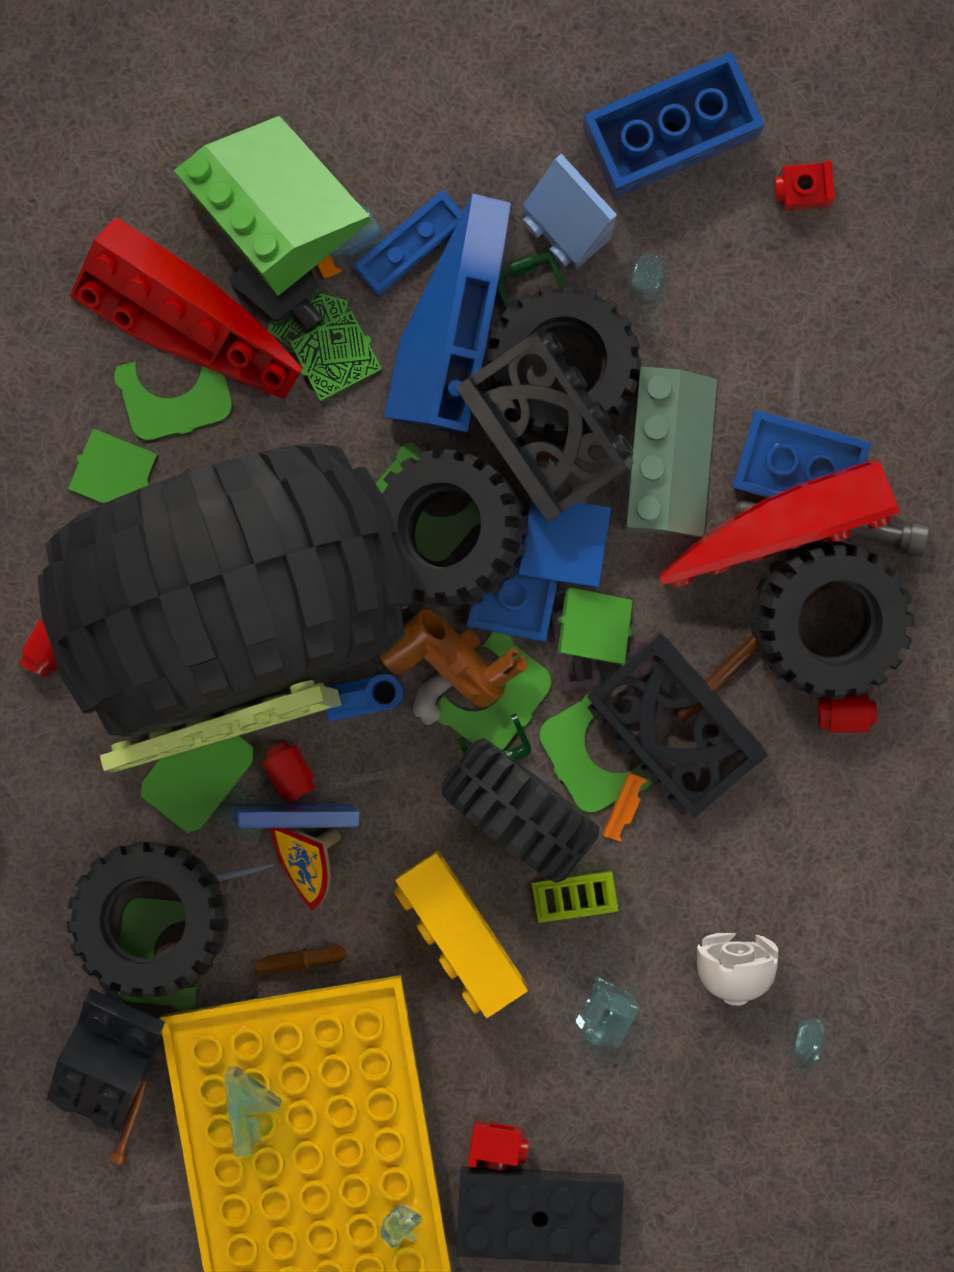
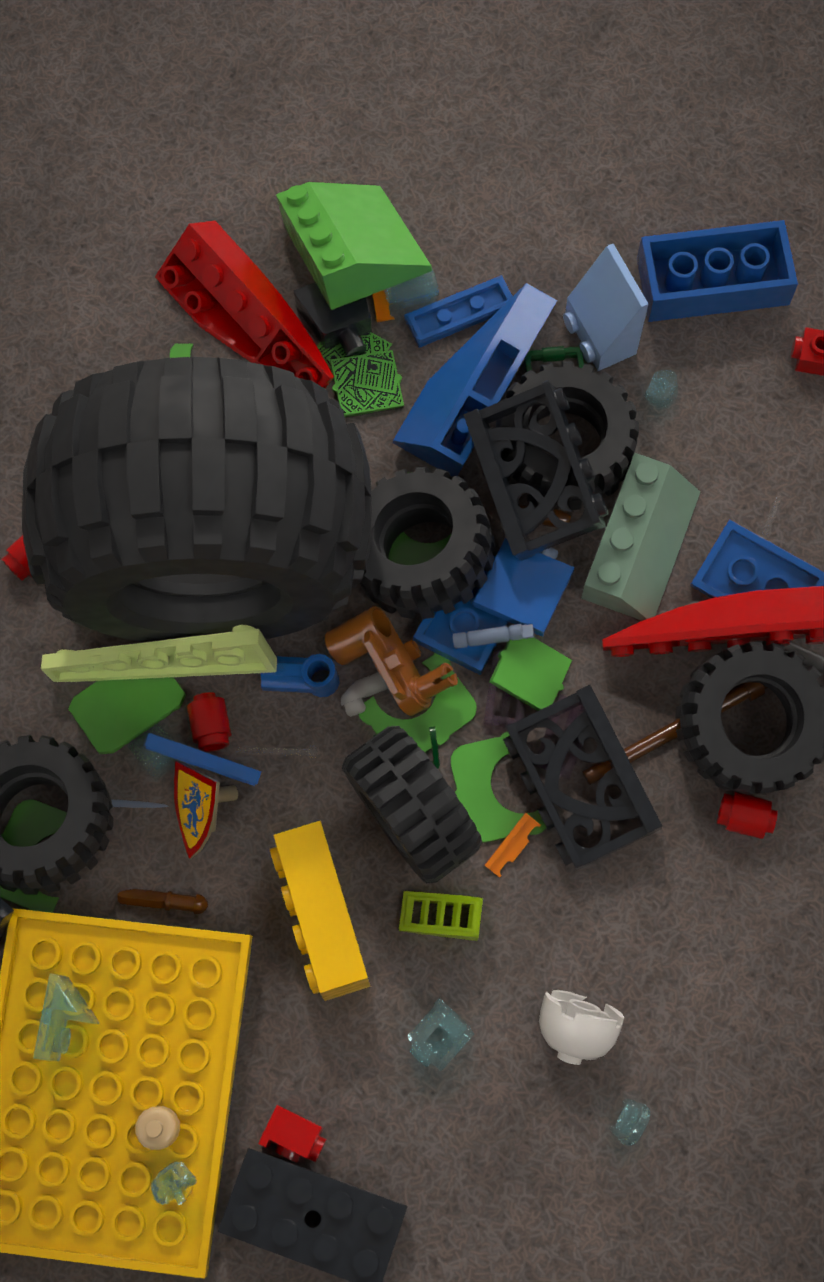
camera: 15 degrees right, 15 degrees down
(370, 1180) = (157, 1127): none -> tan piece
(548, 604) = (493, 635): none -> sand blue wheel

